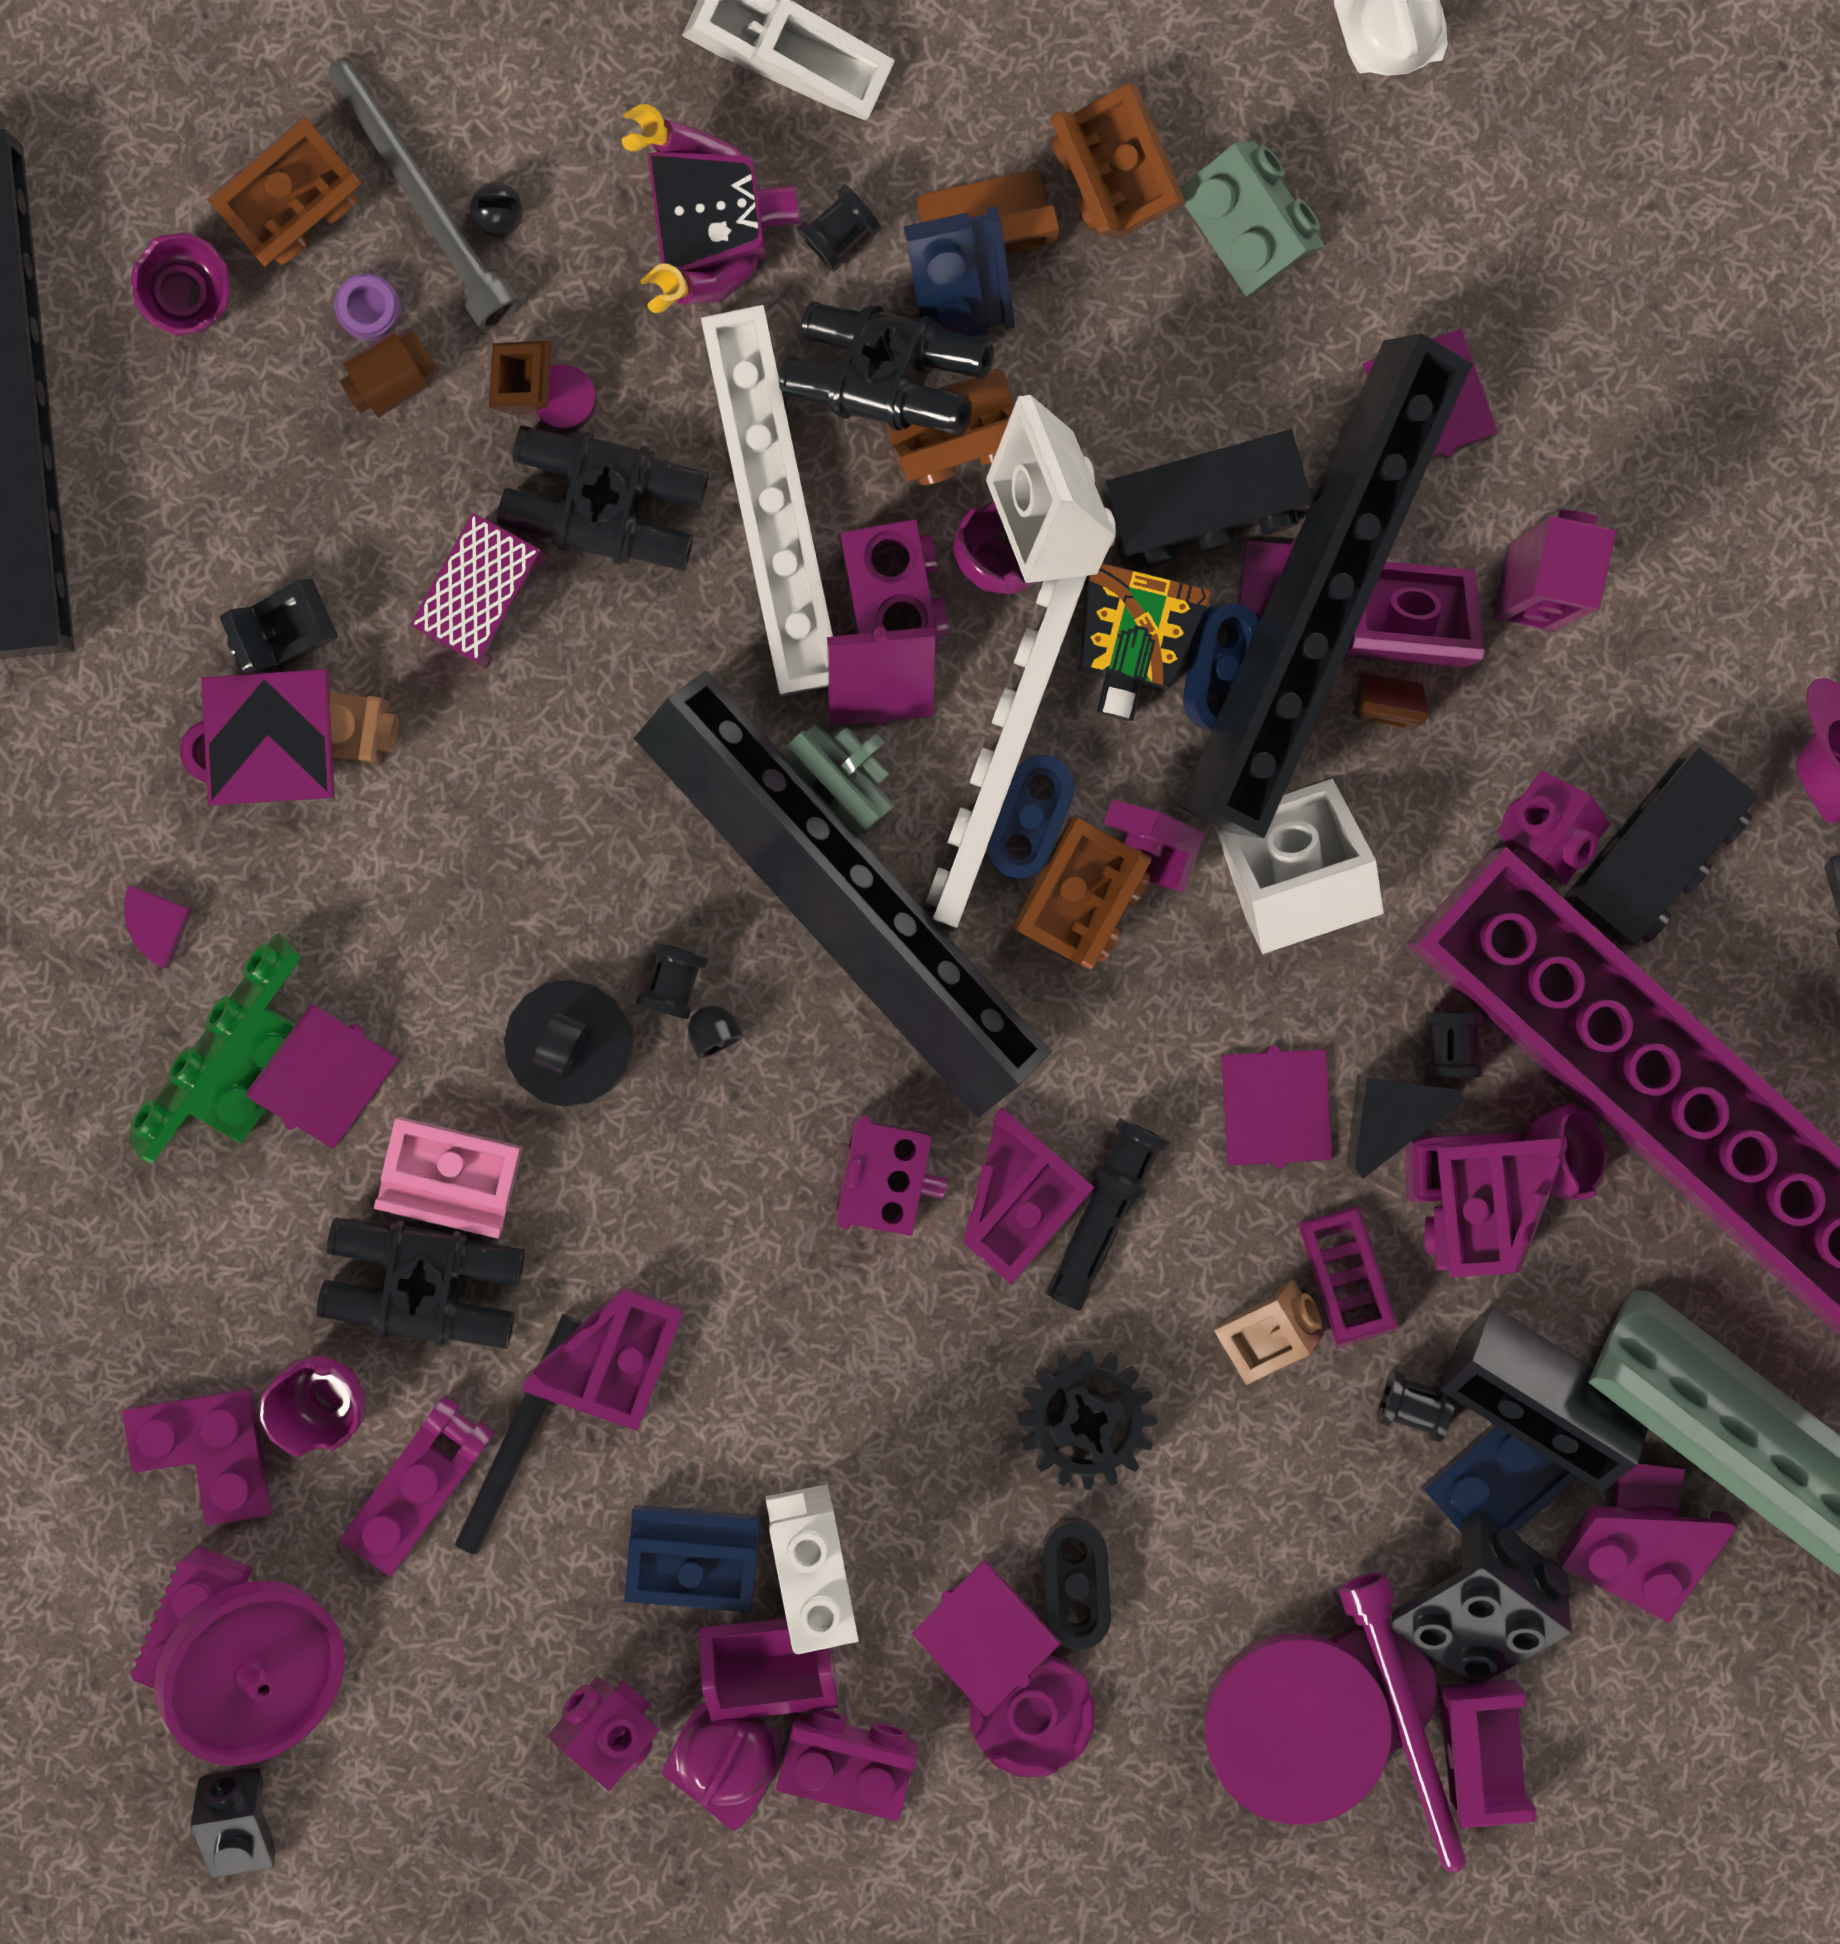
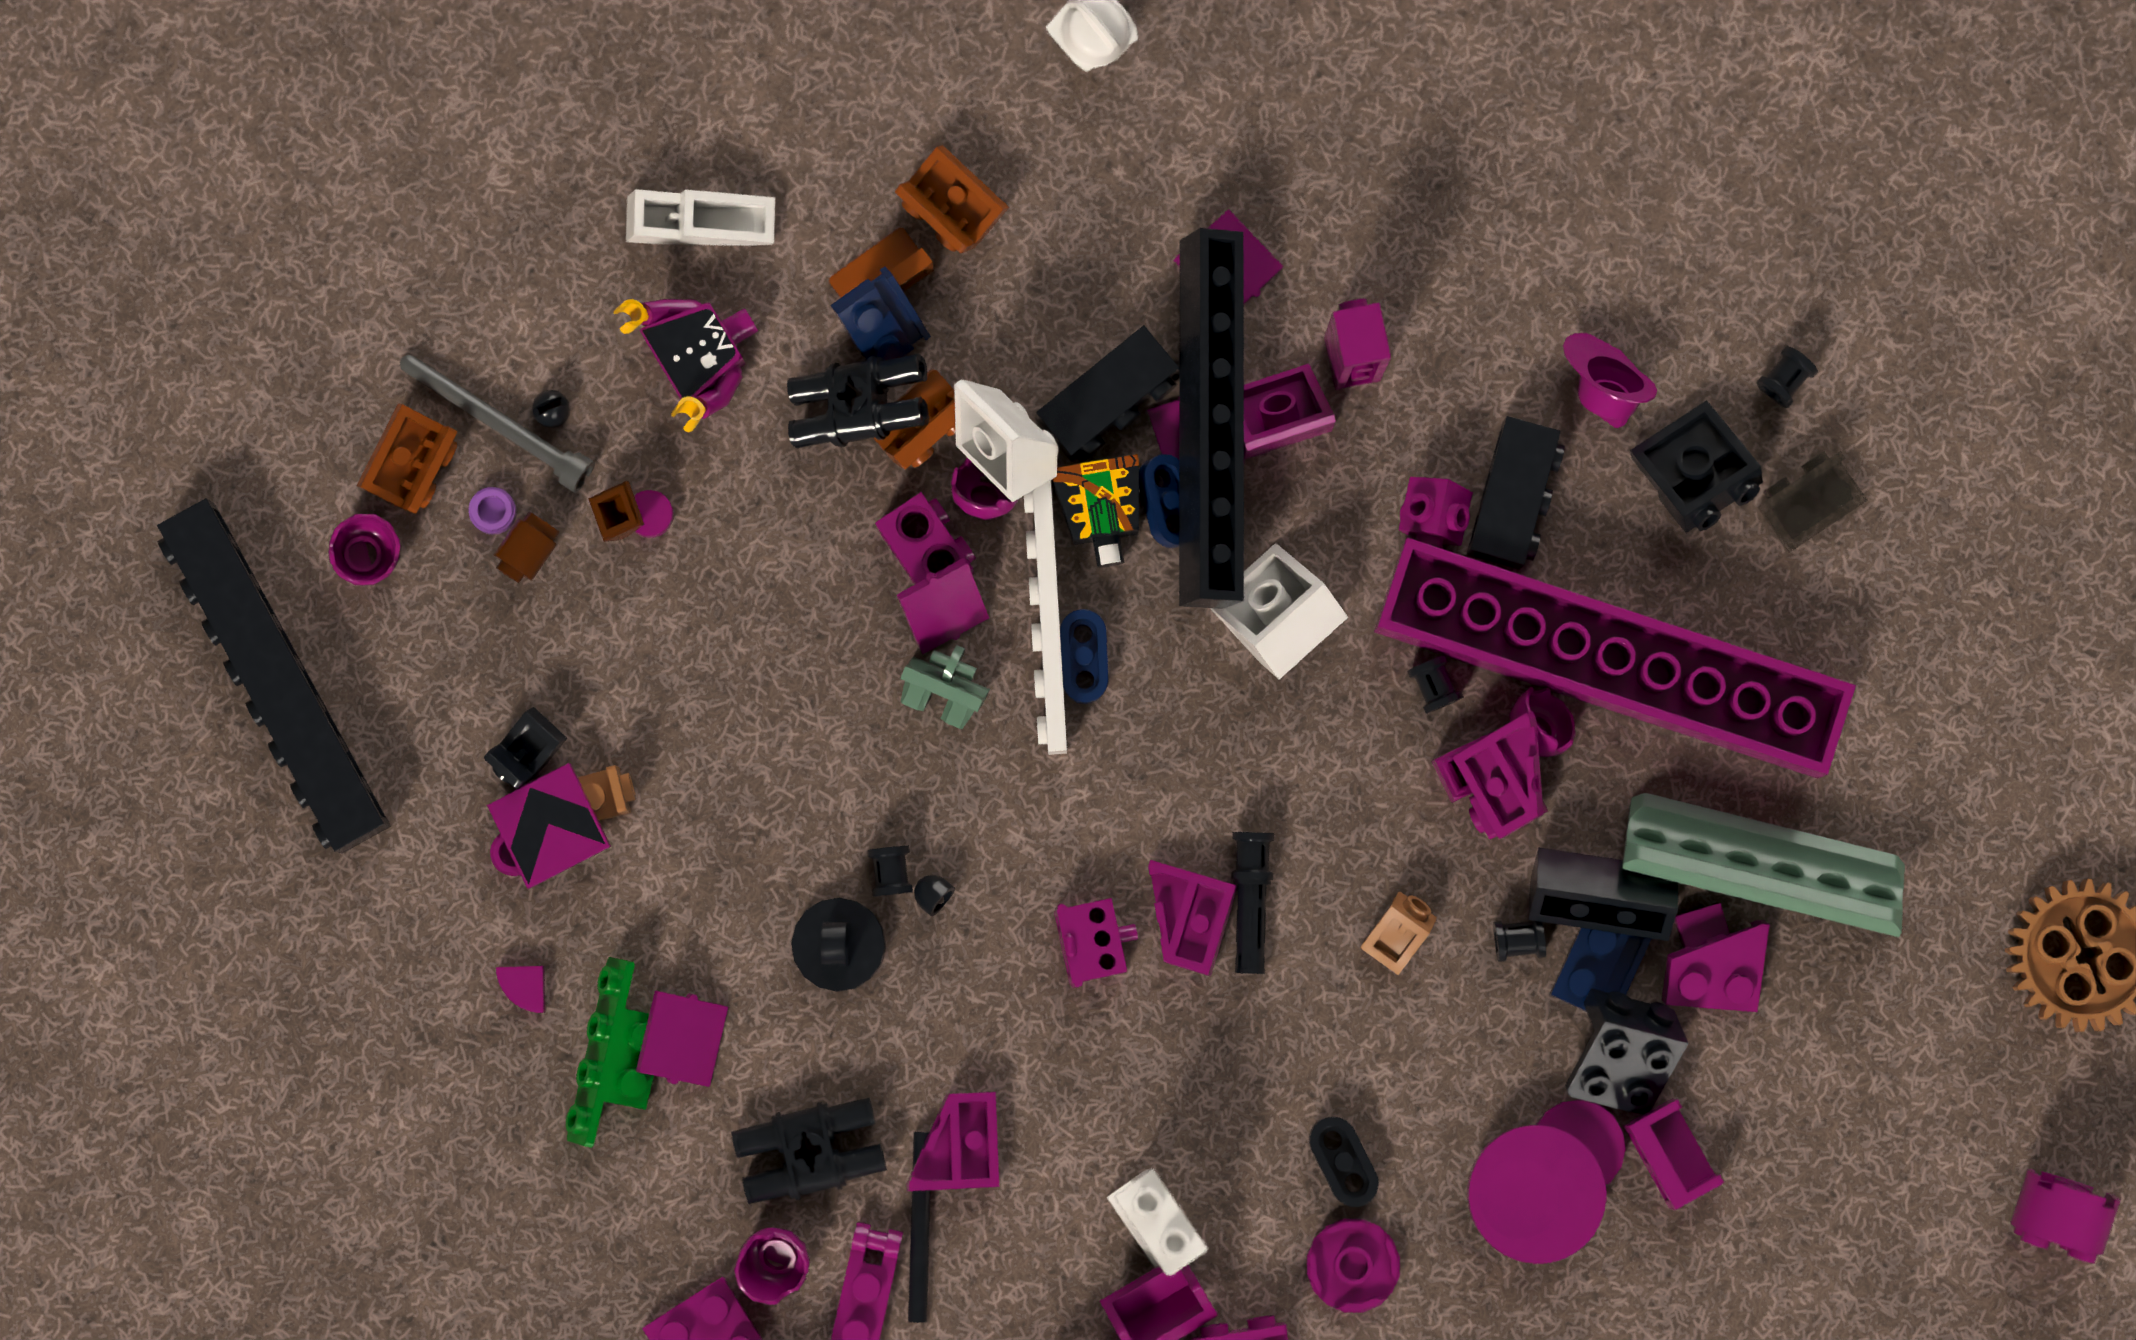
camera: 25 degrees left, 5 degrees down
(448, 1177) = (796, 1070): bright pink plate -> none
(476, 588) = (647, 666): magenta panel -> none
(588, 465) = (725, 585): black pin -> none
(692, 1558) = (1074, 1259): dark blue plate -> none
(770, 497) = (817, 520): white plate -> none
(839, 228) = (786, 322): black bush -> none
(842, 893) = (980, 762): black brick -> none
(986, 1638) = (1298, 1225): magenta piece -> none
(1083, 894) = (1142, 692): dark orange bracket -> none
(1116, 1408) = (1315, 1028): black gear -> none
(1160, 836) = (1180, 633): magenta bracket -> none
(1251, 215) = (1056, 196): sand green bracket -> none
(1276, 1107) = (1336, 779): magenta piece -> none
(1364, 1329) = (1459, 905): magenta slope -> none
(1369, 1603) = (1548, 1088): magenta piece -> none
(1390, 702) = (1291, 475): reddish brown slope -> none
(1390, 1117) = (1413, 750): black slope -> none

